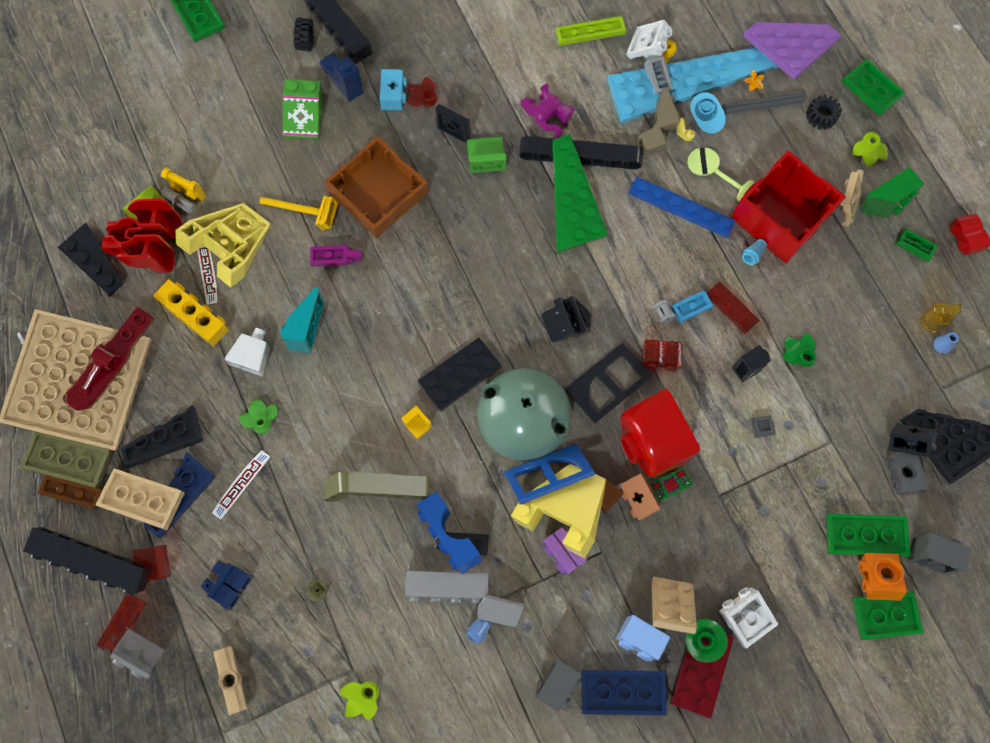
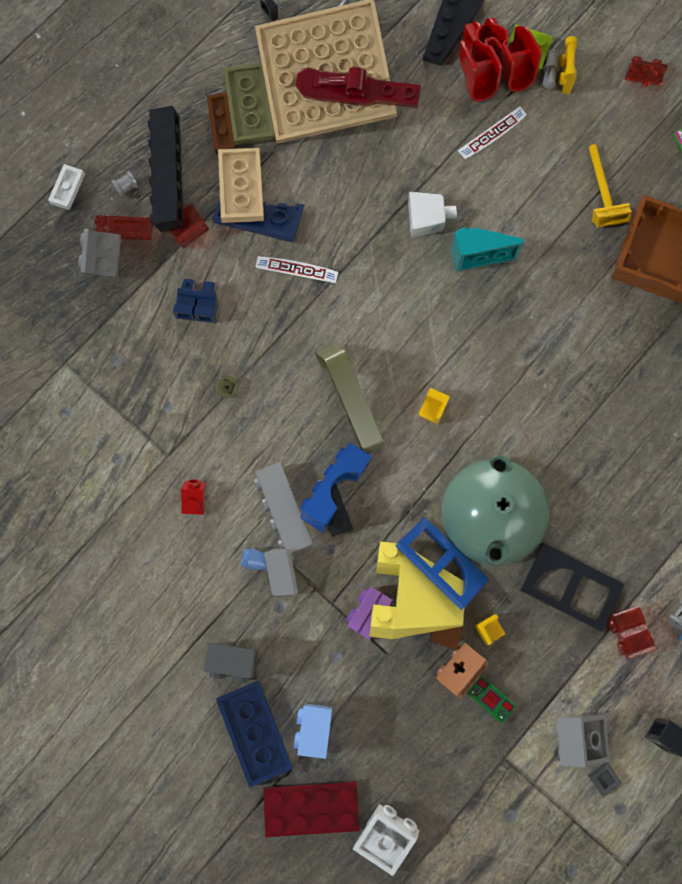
camera: 70 degrees right, 5 degrees up
(53, 661) = (66, 187): none -> white plate
(80, 604) = (125, 184): none -> light grey bush
(167, 296) = (447, 110): yellow brick -> none
(175, 435) = (314, 185): black wing -> none
(221, 131) = (646, 71): none -> clear red hips
(228, 233) = (540, 136): light yellow wedge -> none
(233, 695) = (102, 357): tan piece -> none
(258, 414) = (370, 251): bright green plate -> none
(333, 255) = (569, 244): magenta hinge -> none
(358, 701) = (141, 474): lime plate -> none
(400, 661) = (193, 497): none -> red bracket
(459, 374) = (506, 427): black plate -> none
(567, 319) = (620, 512): black piece -> none
(616, 461) = (489, 629): none -> yellow panel
(657, 435) = (535, 660): red piece -> none
(673, 605) = (362, 750): tan plate -> none
(716, 641) = (338, 813): green dish -> none
(728, 429) = (583, 740): none -> light grey slope

